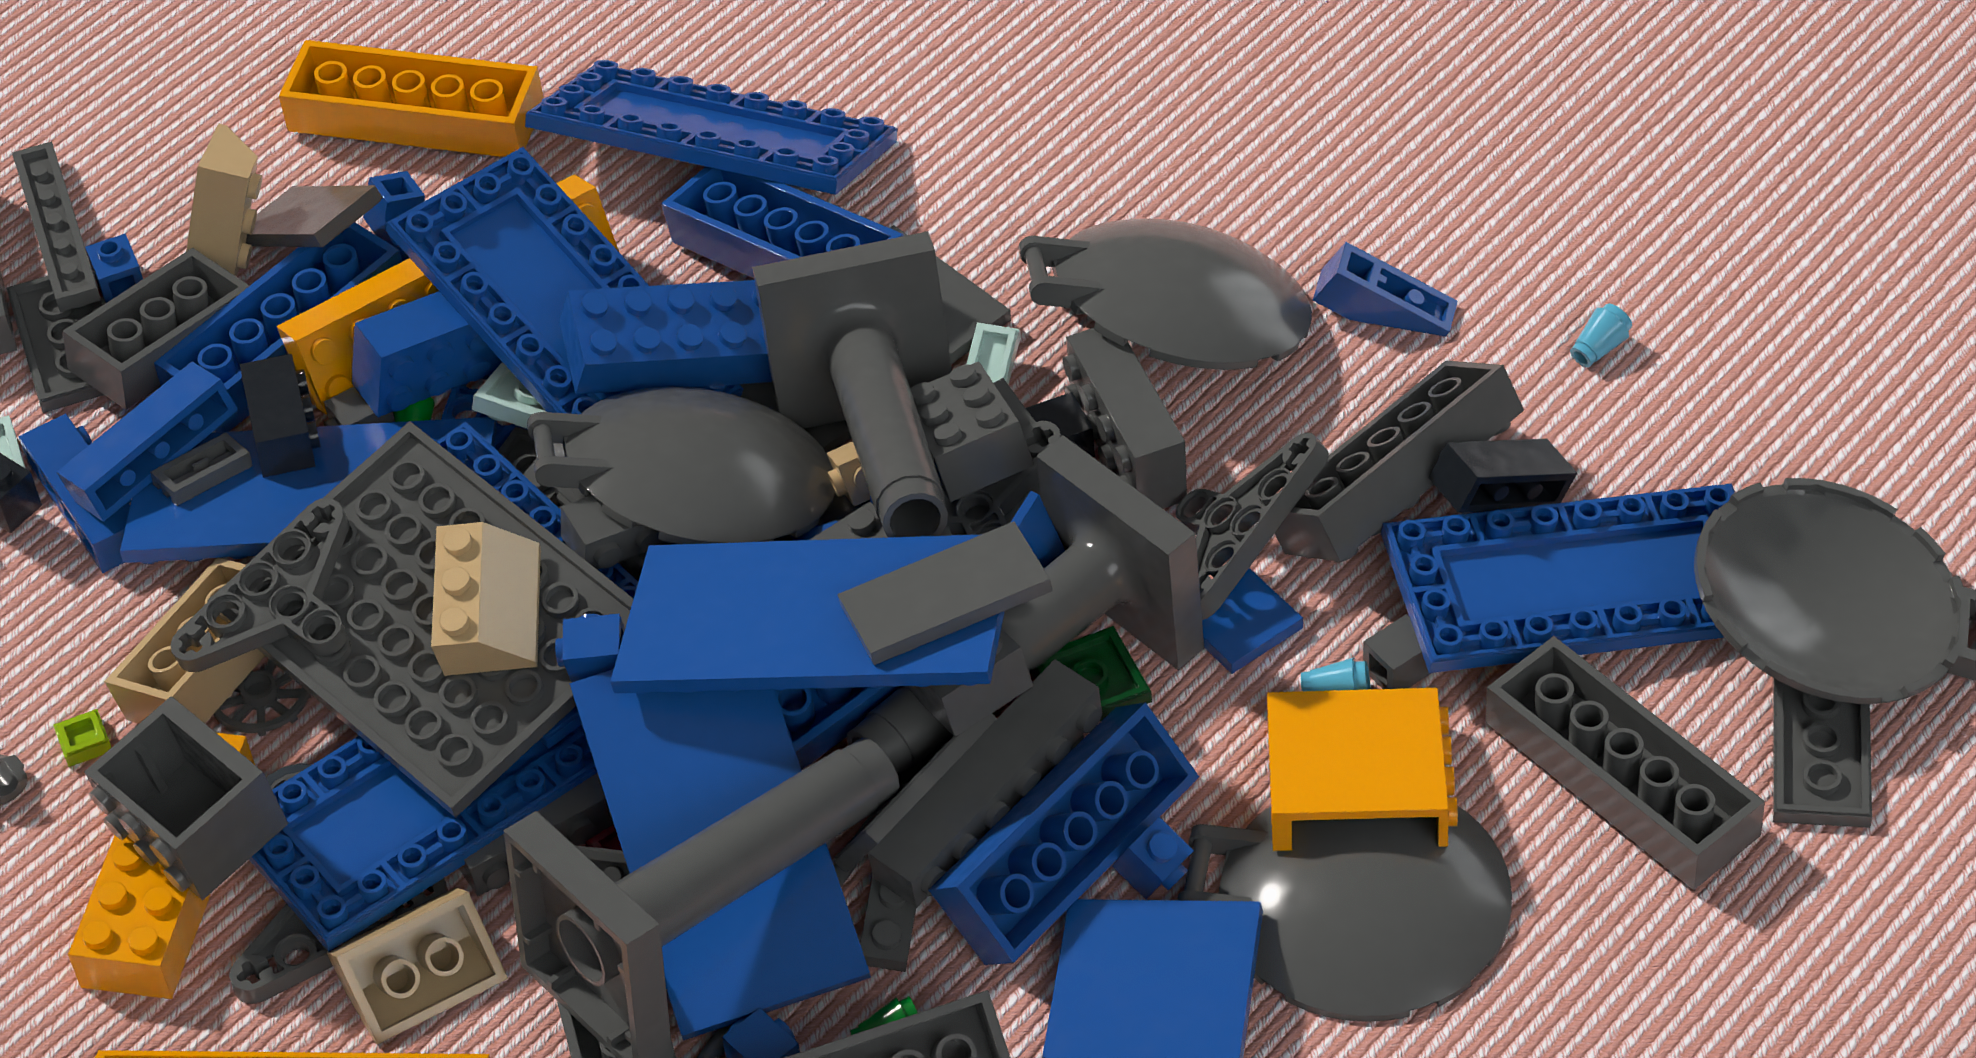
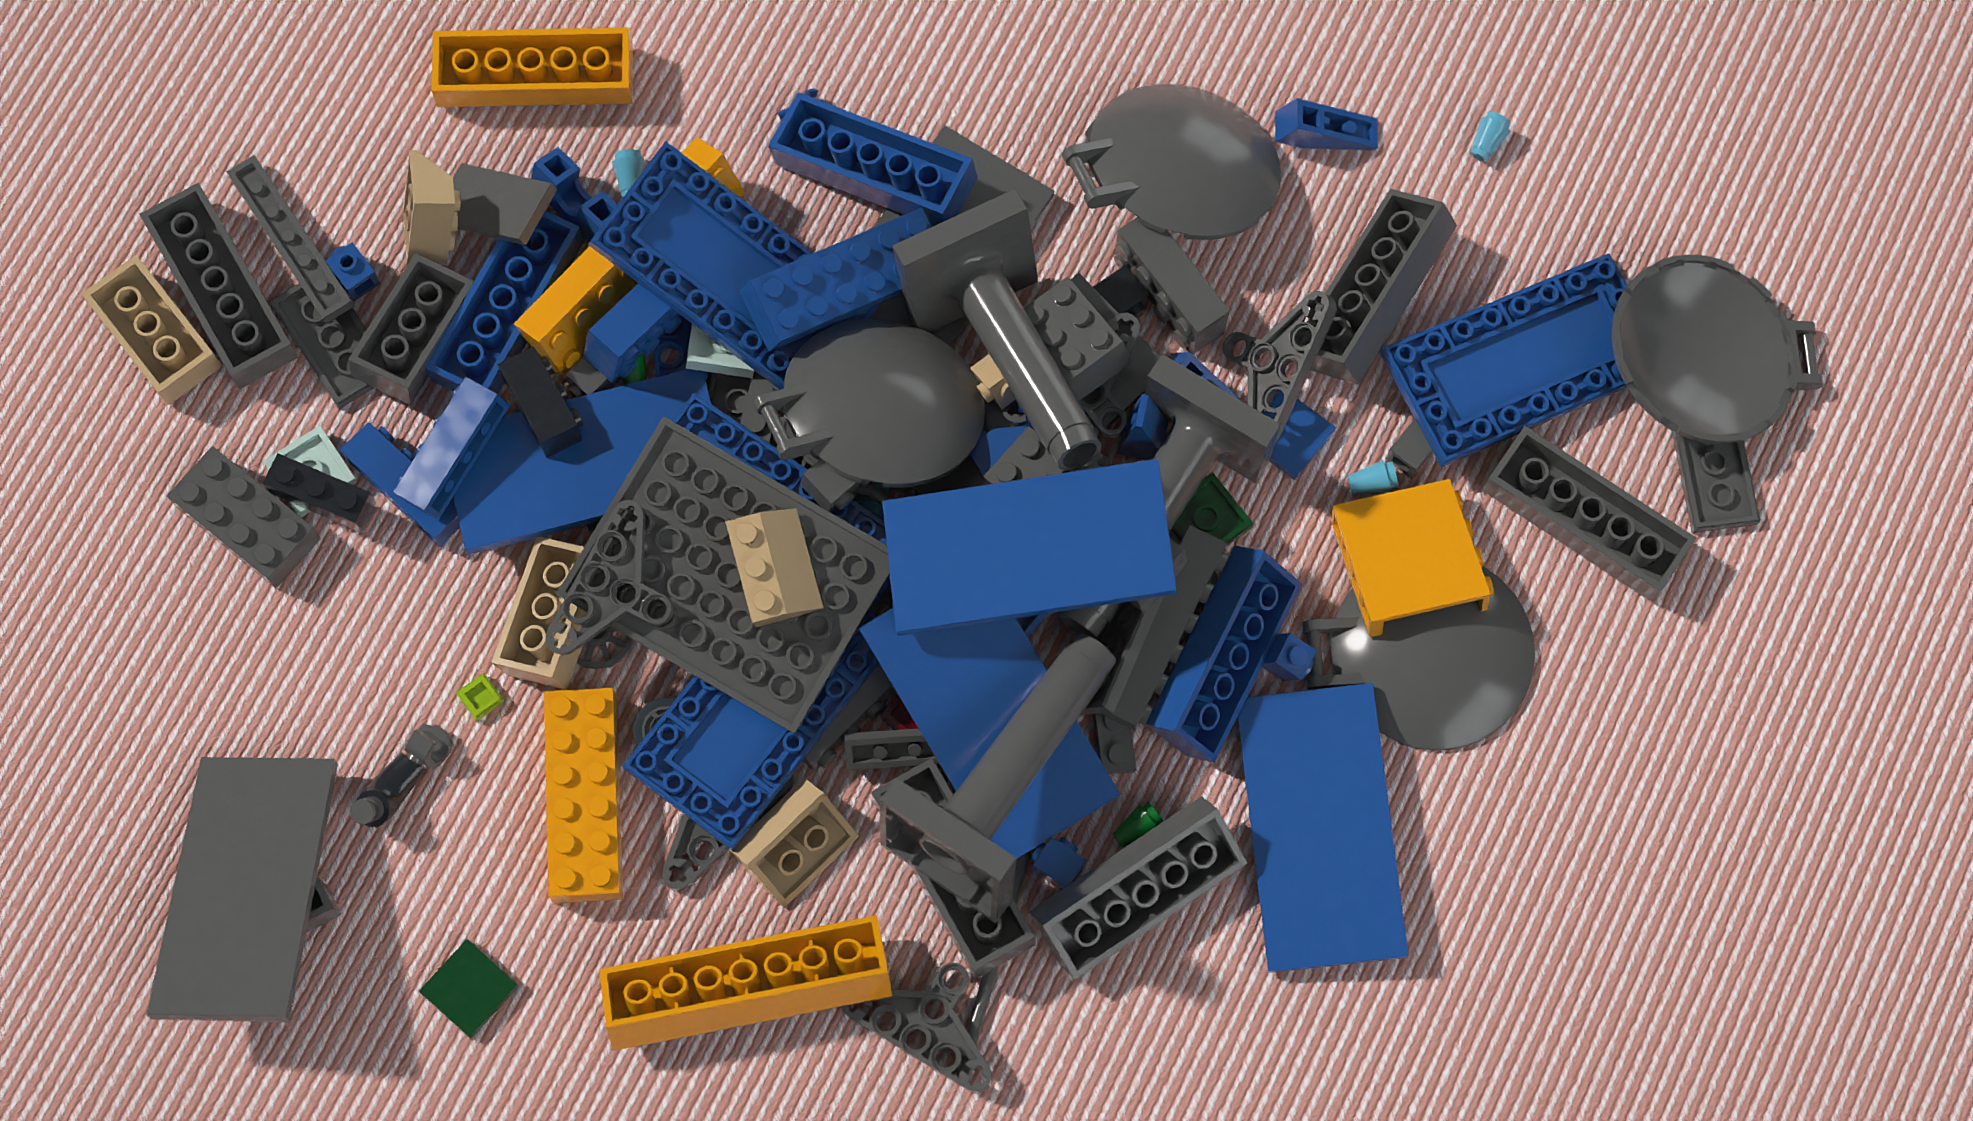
camera: 20 degrees left, 25 degrees up
(185, 799) = (602, 771): dark grey container -> none
(201, 468) = (509, 467): dark grey tile -> none
(589, 644) = (865, 593): blue brick -> none
(714, 127) = (781, 60): blue tile -> none
(944, 592) = (1125, 524): dark grey tile -> none
(995, 350) = (1052, 245): light aqua tile -> none
(1501, 474) = (1454, 286): black brick -> none

